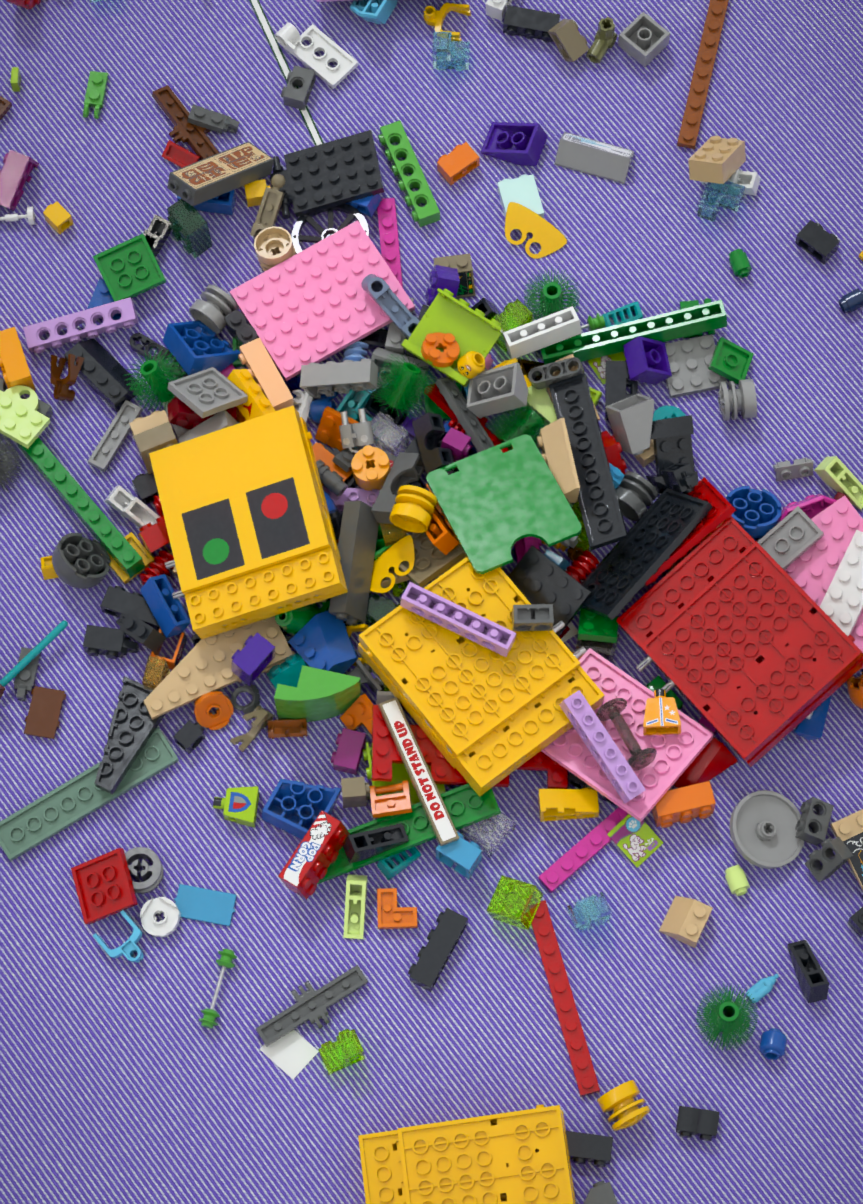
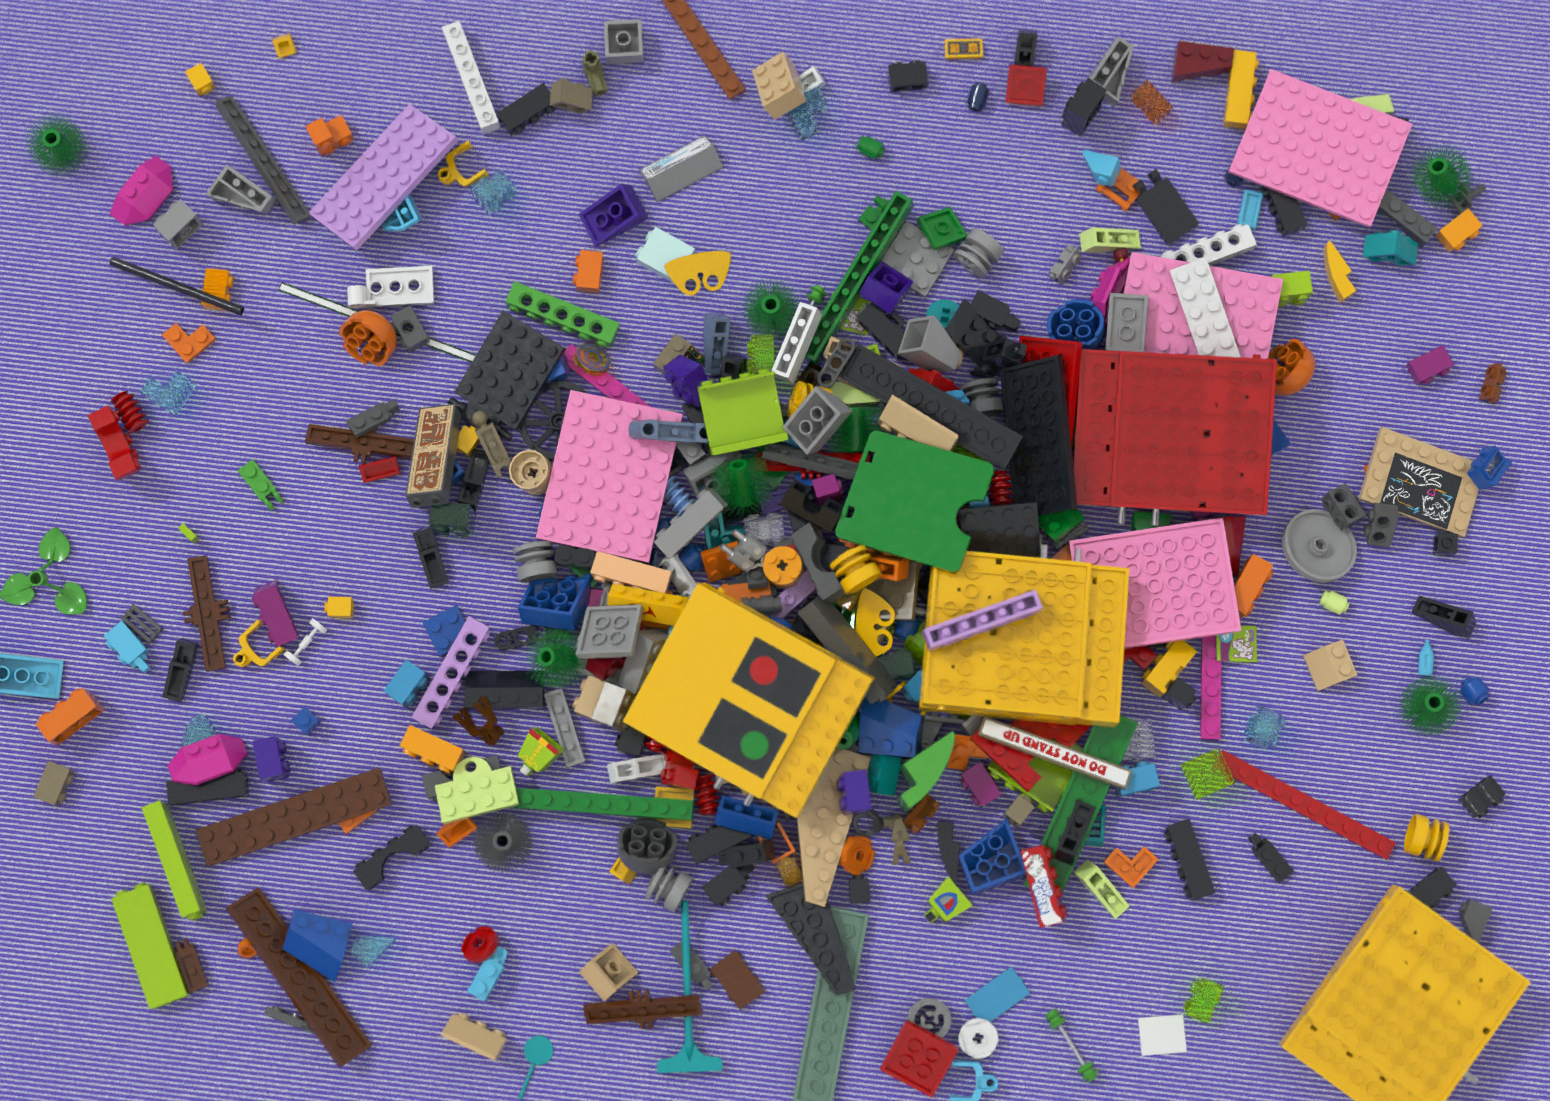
camera: 50 degrees left, 10 degrees up
(43, 303) = (407, 684): none -> dark azure brick
(65, 603) = (668, 887): none -> light grey wheel
(80, 432) = (538, 751): none -> lime torso
(129, 268) = (440, 594): green plate -> none
(232, 222) = (474, 479): none -> black slope
(272, 65) = (375, 330): none -> orange cylinder
(279, 770) = (948, 850): none -> black slope
(311, 1005) = (1146, 989): dark grey hinge -> none
(393, 803) = (1055, 795): orange plate -> none
(403, 215) = (589, 350): none -> clear yellow tile
(444, 341) = (745, 420): orange plate -> none
(471, 364) = (778, 419): yellow head -> none
(493, 285) = (715, 340): none -> sand blue slope
(497, 1009) = (1270, 858): none -> black hinge
(532, 617) = (1030, 565): dark grey brick -> none
(554, 828) = (1180, 694): none -> black brick
(602, 746) = (1168, 607): lavender brick -> none
(612, 710) = (1169, 580): clear smoke hose -> none
(621, 311) = (837, 256): teal slope -> none
(661, 715) = (1175, 540): light orange torso -> none
(706, 450) = (994, 312): none -> black hinge

